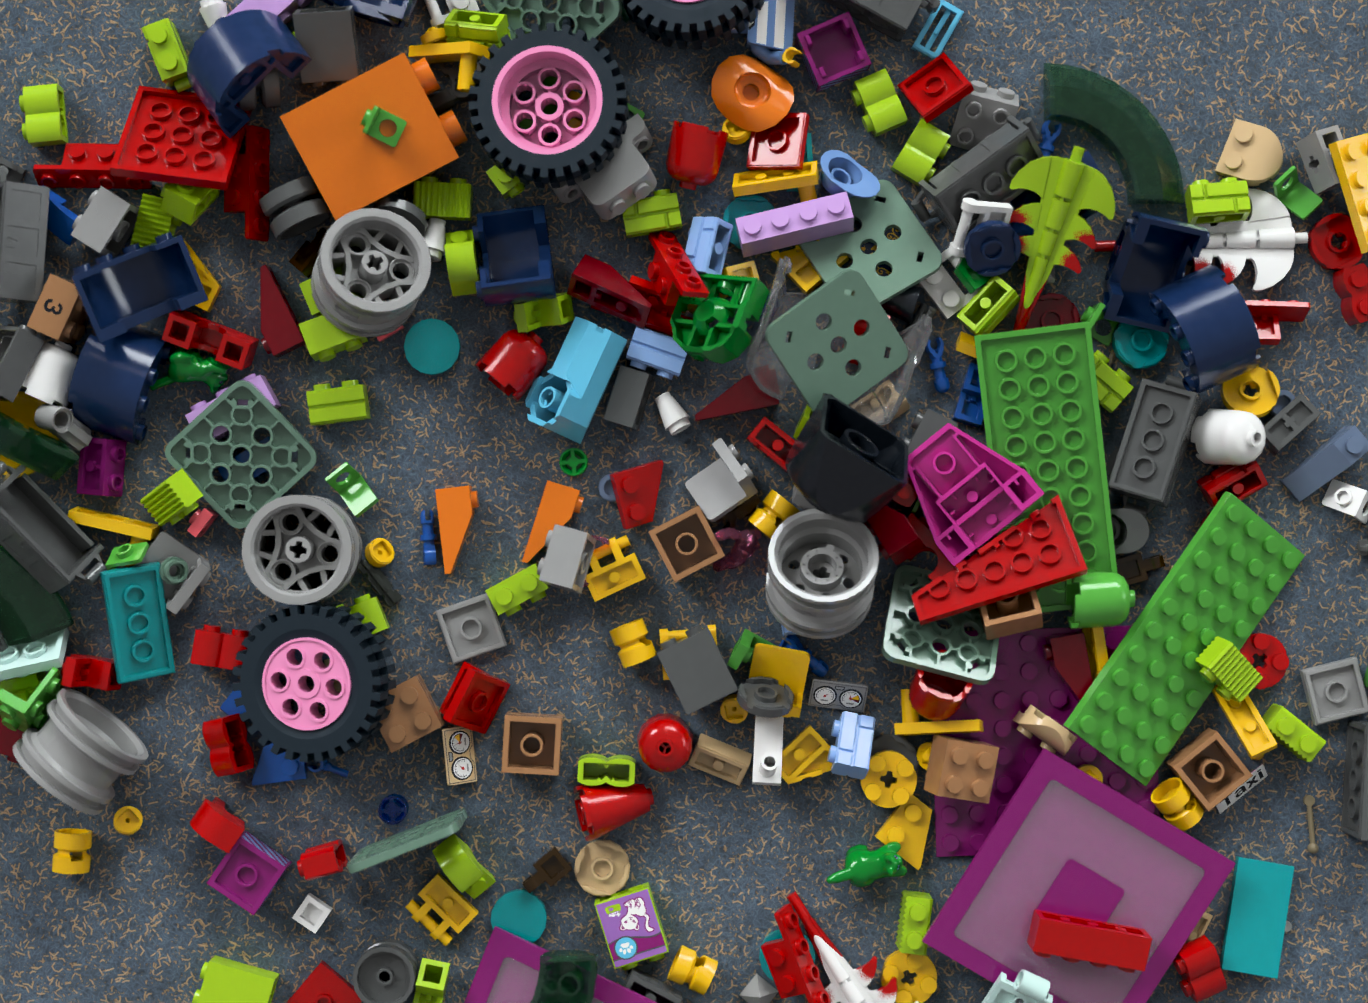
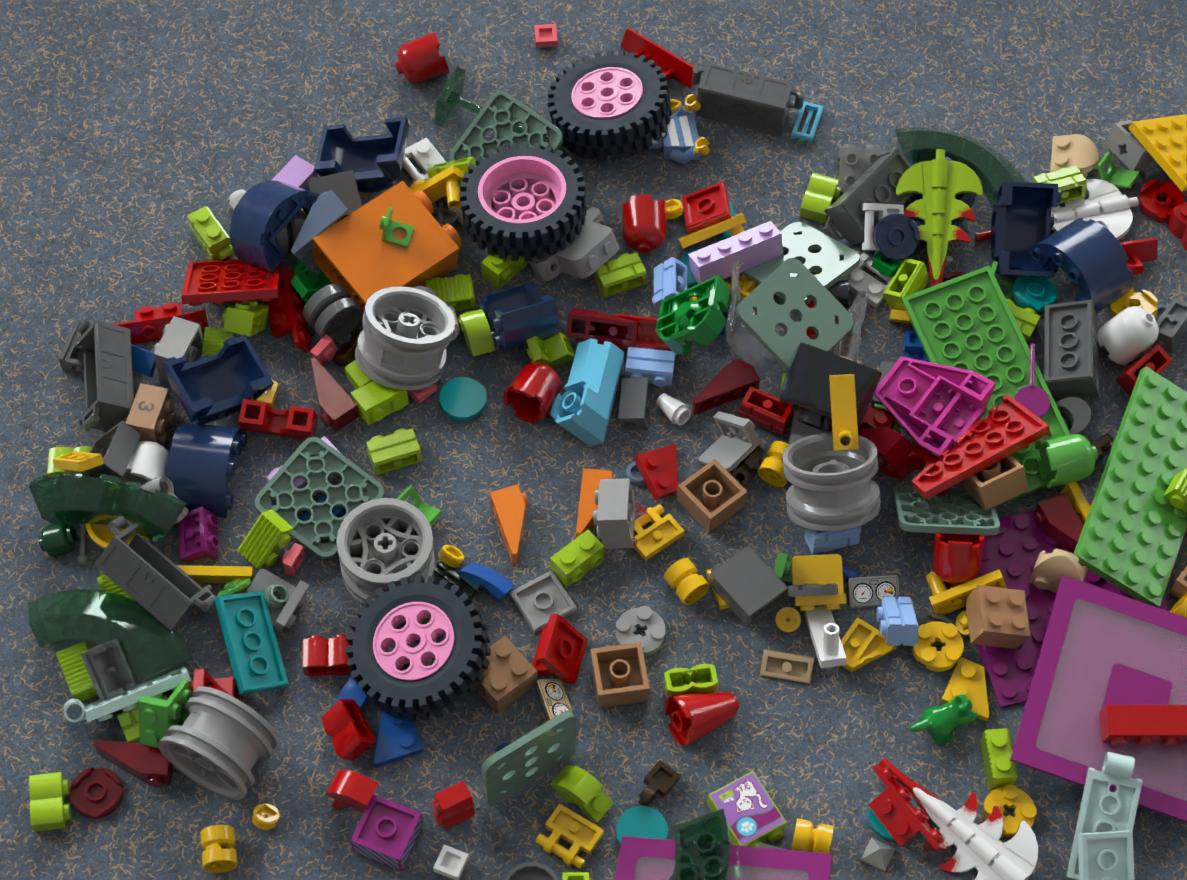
camera: 20 degrees left, 30 degrees down
(45, 115) = (115, 293): lime brick -> none
(190, 367) = (262, 445): green animal -> none
(276, 155) = (307, 282): none -> green plate
(280, 251) = (324, 350): none -> coral plate
(296, 87) = (322, 215): none -> sand blue slope
(324, 765) = (438, 737): blue hand -> none
(411, 591) = (479, 575): none -> blue slope
(428, 538) = (491, 539): blue piece -> none
(561, 701) = (643, 618): none -> light grey plate
(571, 462) = (602, 452): green wheel -> none
(598, 859) = (699, 772): tan tile -> none
(660, 730) = (736, 653): red cylinder -> none
(672, 270) = (645, 297): red bracket -> none
(744, 547) = (761, 493): clear pink helmet -> none
(751, 93) = (675, 180): orange hat -> none
(833, 51) = (733, 145): magenta container -> none
(844, 174) = (759, 216): medium blue piece -> none
(849, 523) = (844, 412): none -> yellow piece
(879, 103) = (778, 172): lime brick -> none
(935, 87) = (817, 151): red plate -> none
(941, 381) = (879, 337): blue piece -> none
(1085, 505) = (1032, 396): none -> magenta piece

